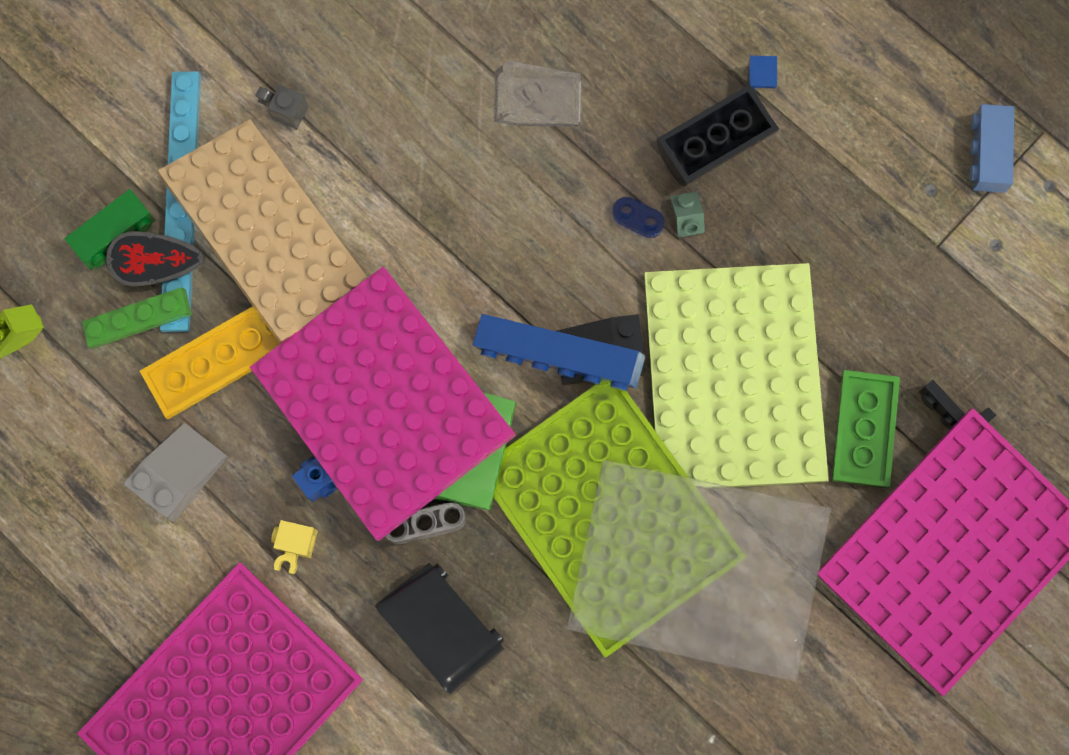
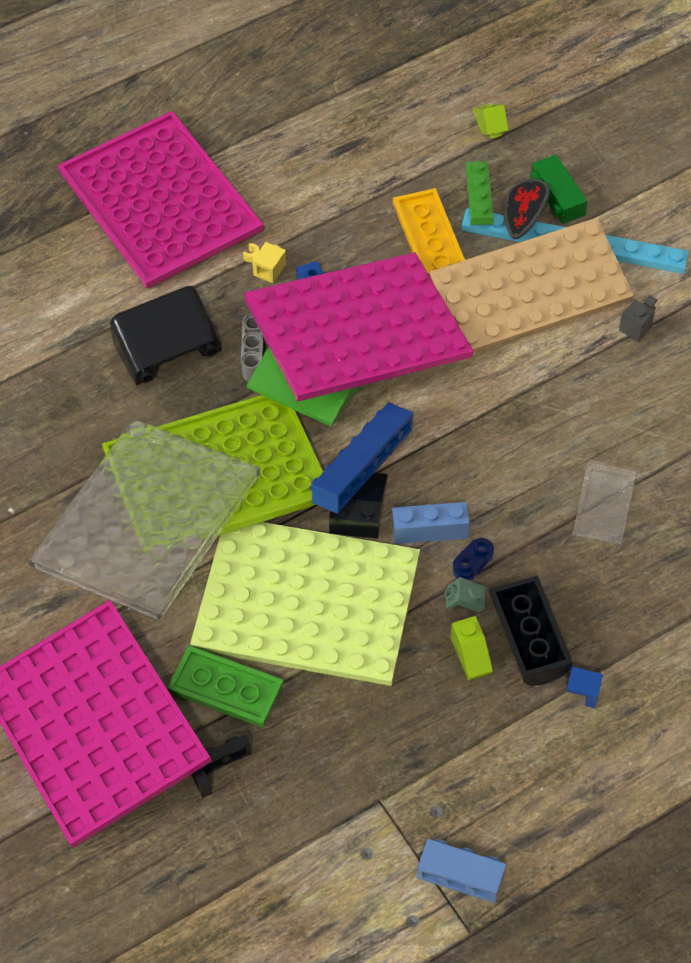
camera: 100 degrees right, 20 degrees down
(176, 472) = (346, 198): light grey slope -> none
(612, 266) = (430, 523): none -> medium blue brick
(748, 193) = (471, 648): none -> lime slope

